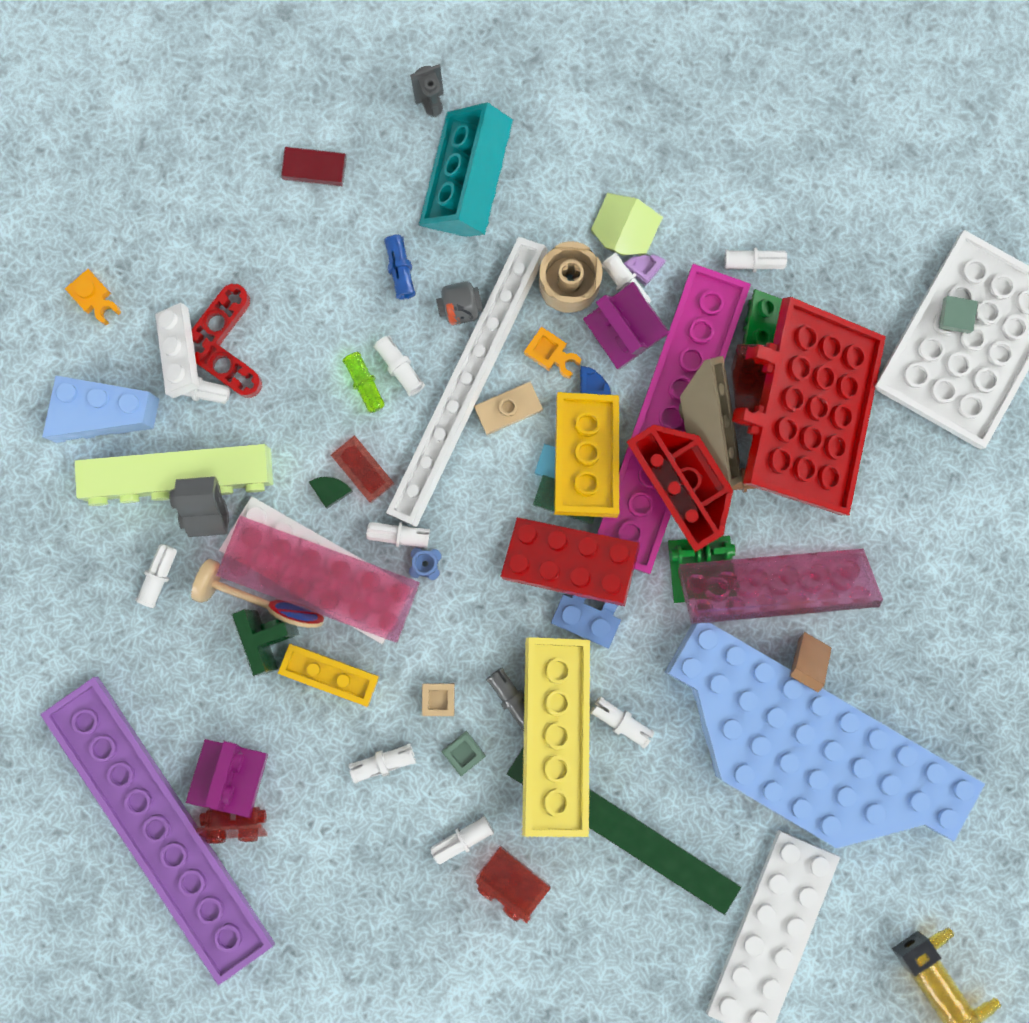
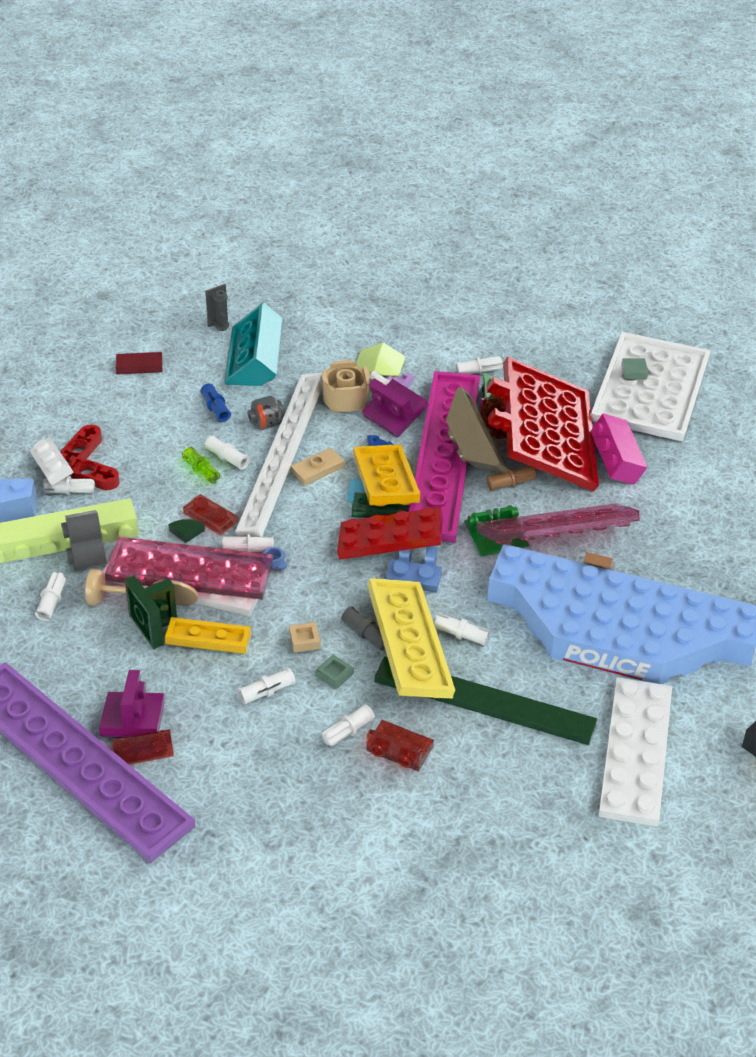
camera: 10 degrees left, 40 degrees down
(548, 350) = (341, 429): light orange plate -> none
(685, 481) = (460, 465): red wedge -> none
(892, 461) = (618, 449): none -> dark pink brick

